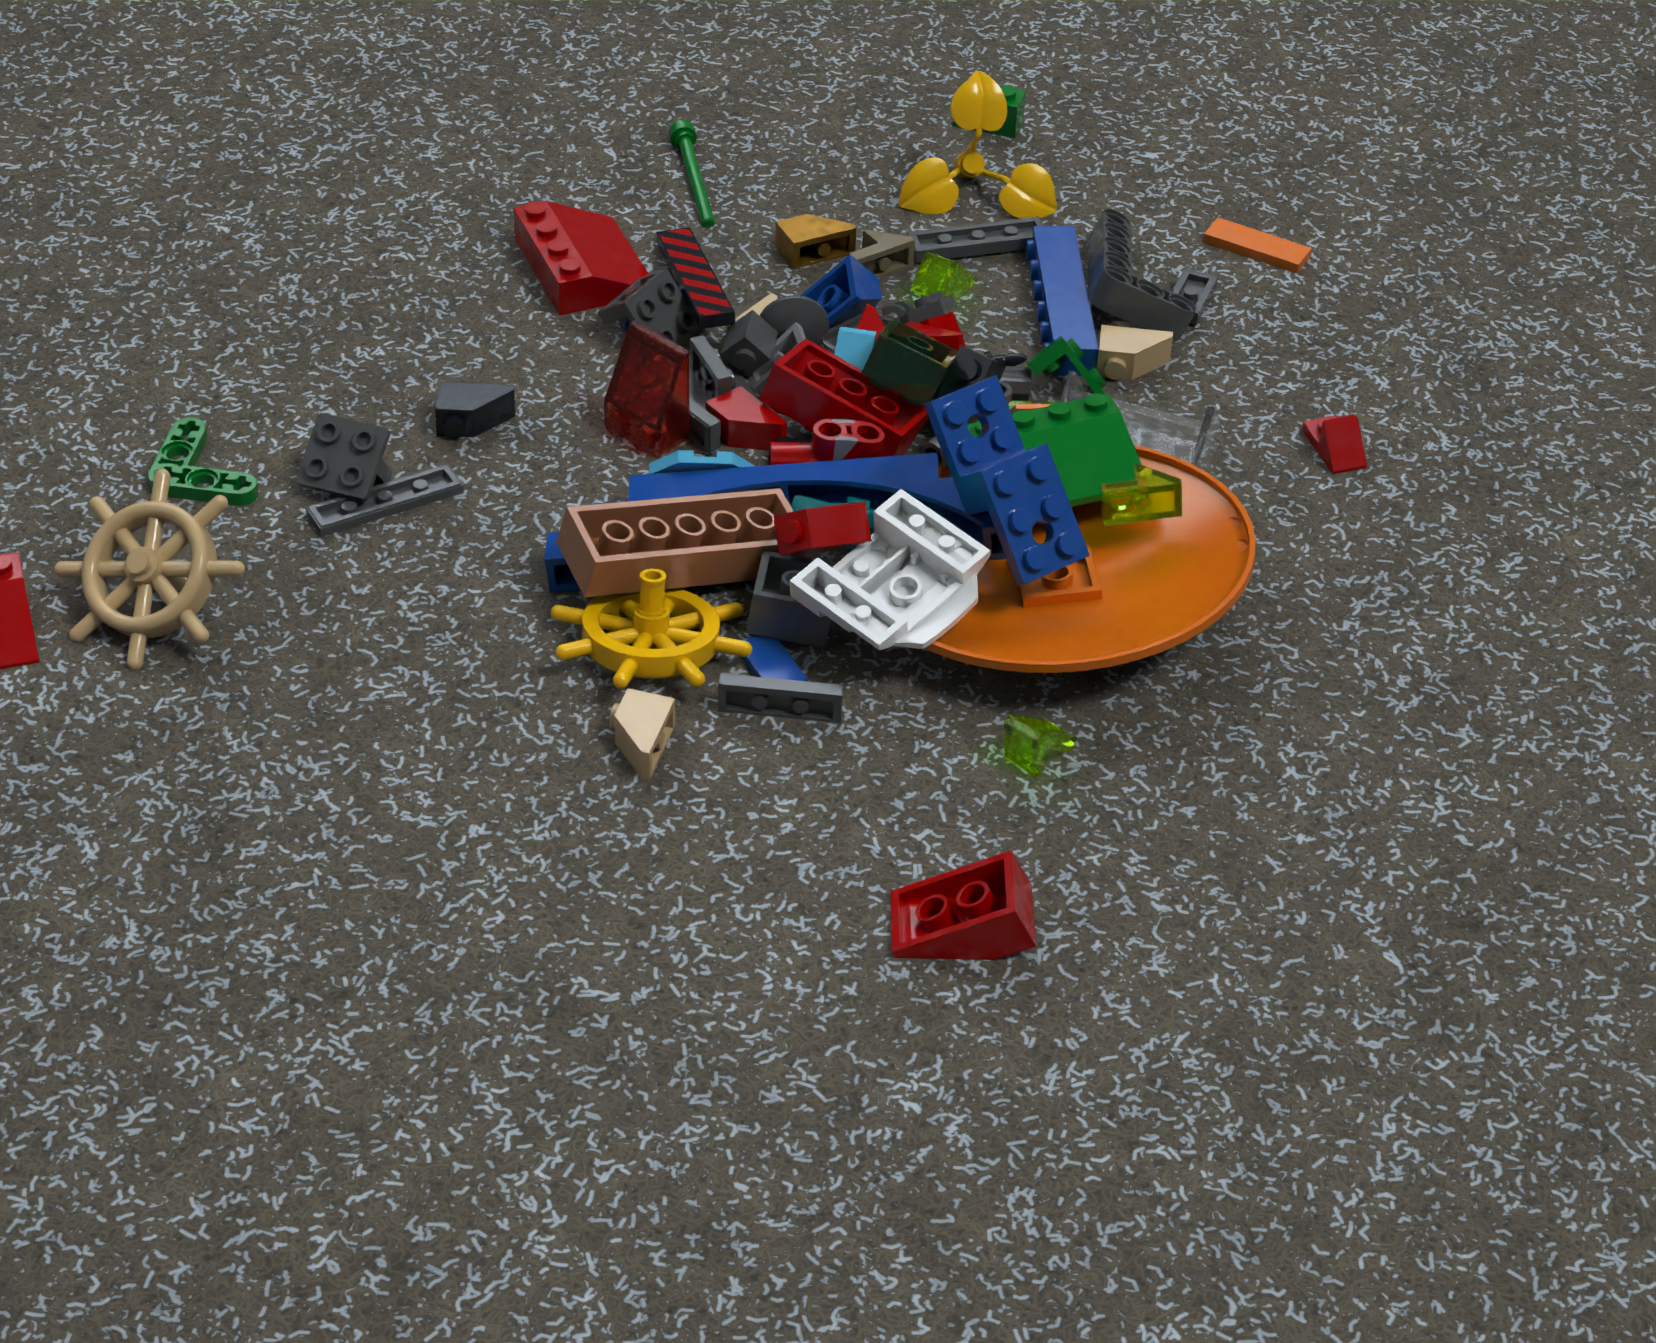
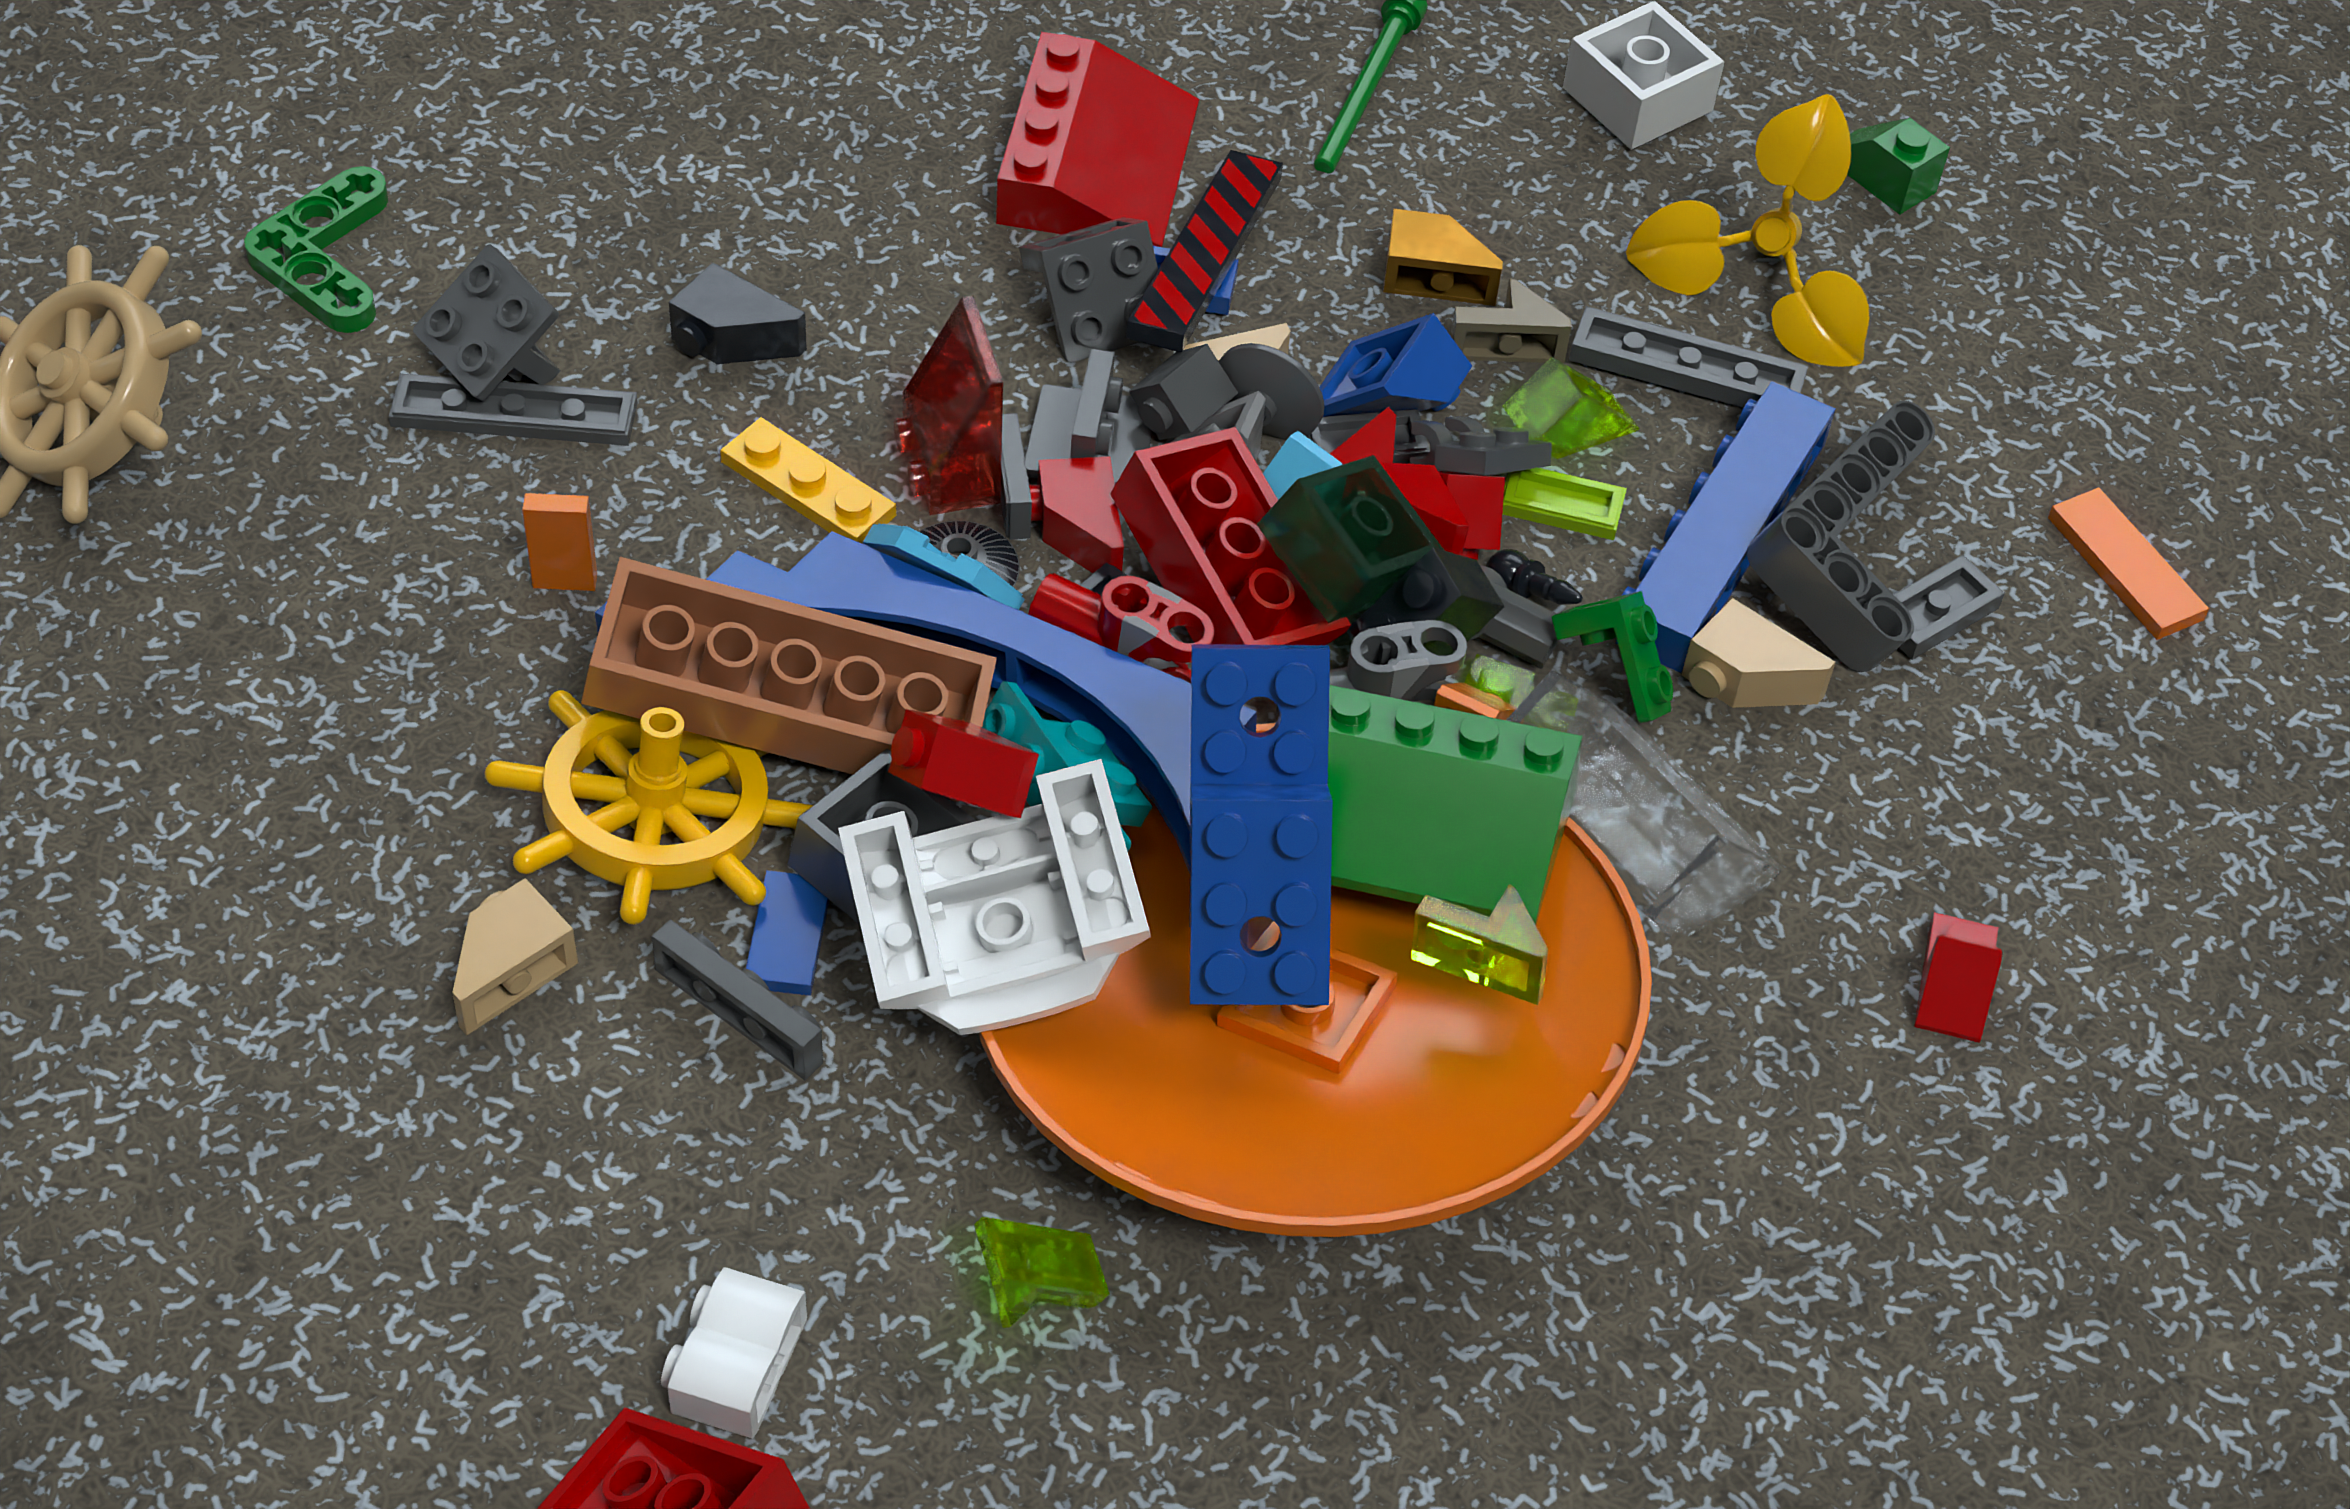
camera: 30 degrees right, 10 degrees up
(492, 537) = (560, 541): none -> orange tile
(579, 468) = (806, 481): none -> yellow plate
(840, 116) = (1643, 74): none -> white brick
(926, 837) = (734, 1352): none -> white brick
(982, 322) = (1564, 501): none -> lime tile

